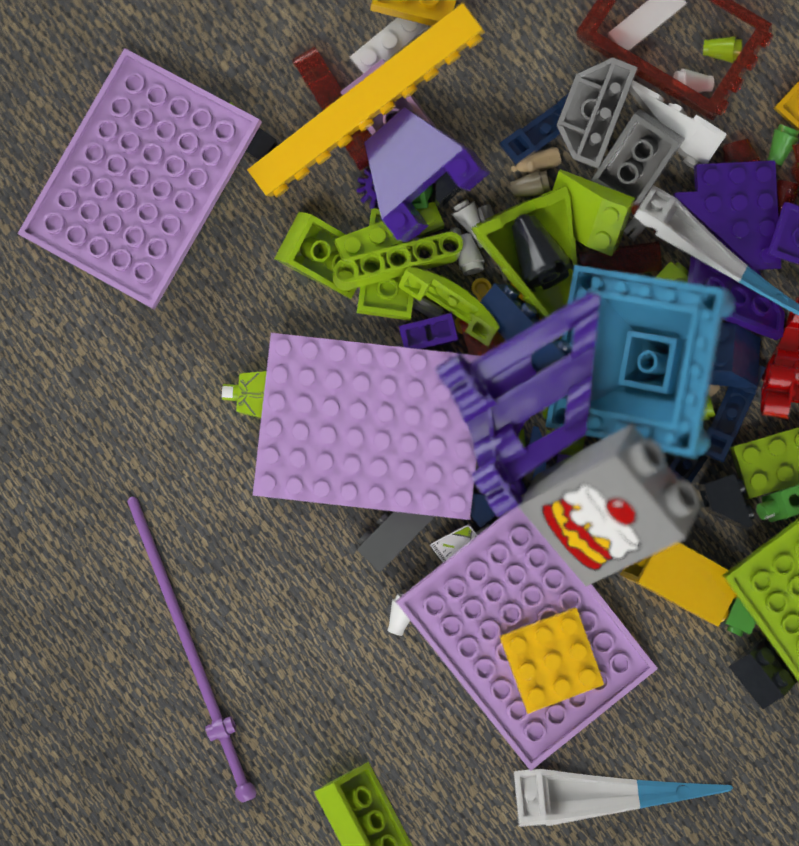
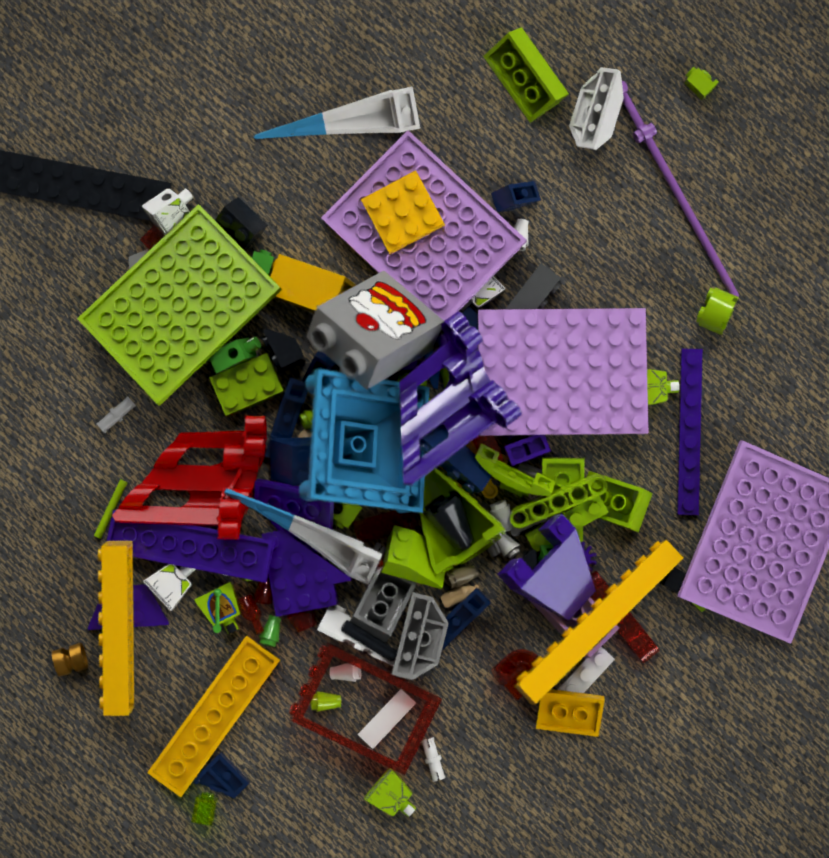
camera: 170 degrees right, 0 degrees up
(139, 786) = (700, 82): none -> lime brick
(159, 481) = (717, 311): none -> lime brick
(215, 332) = (689, 432): none -> dark purple plate
(279, 765) = (597, 109): none -> white wedge
(400, 665) = (515, 196): none -> dark blue slope
(480, 60) = (511, 667): none -> clear red brick
(661, 113) = (369, 640): none -> black axle

